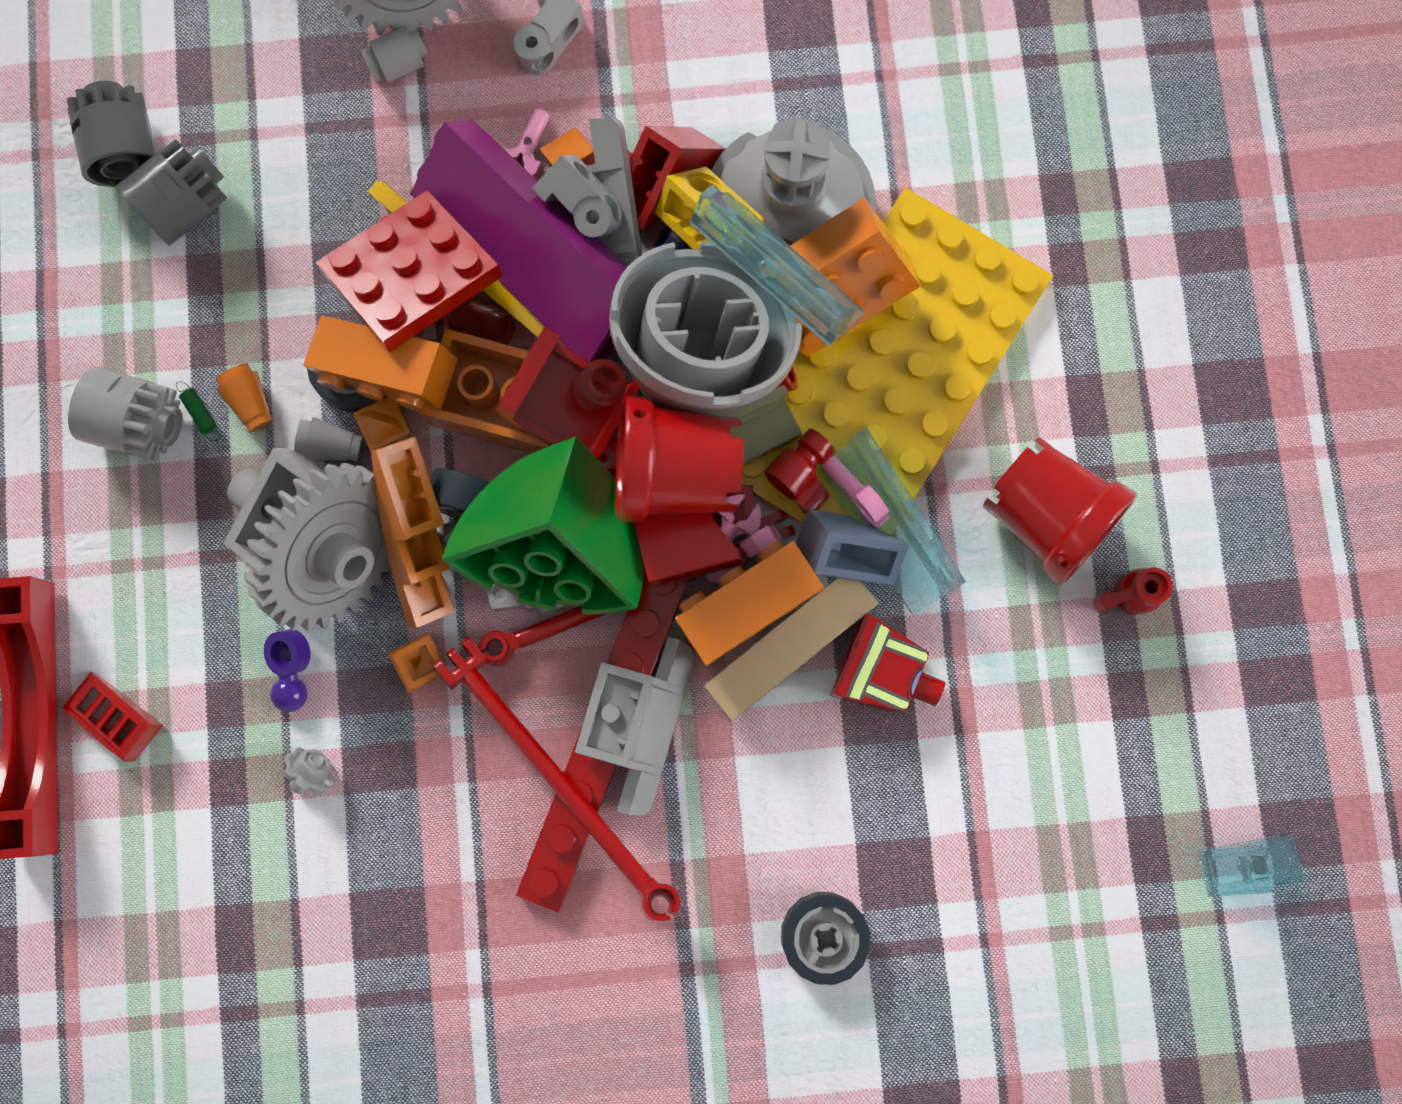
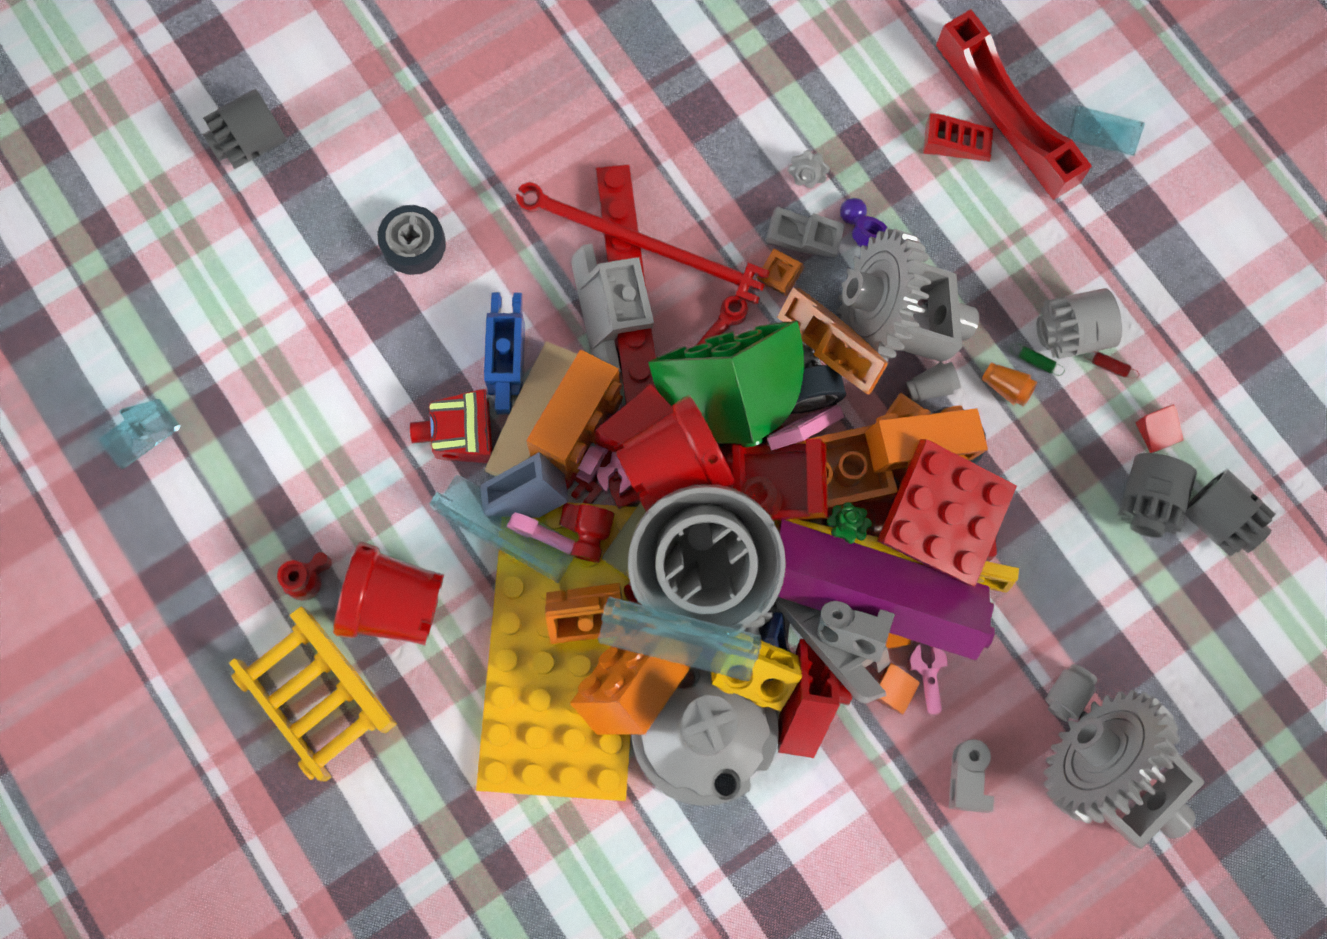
camera: 145 degrees right, 5 degrees down
(119, 266) = (1160, 429): none -> slope
(119, 358) = (1111, 364): none -> red piece
(360, 697) = (803, 234): none -> light grey slope
(502, 446) = (805, 427): none -> bright pink tile
(518, 320) = (849, 522): none -> green plant
(787, 730) = (504, 352): none -> blue hinge
(854, 378) = (578, 612): none -> orange brick
(1136, 446) = (349, 688): none -> yellow fence

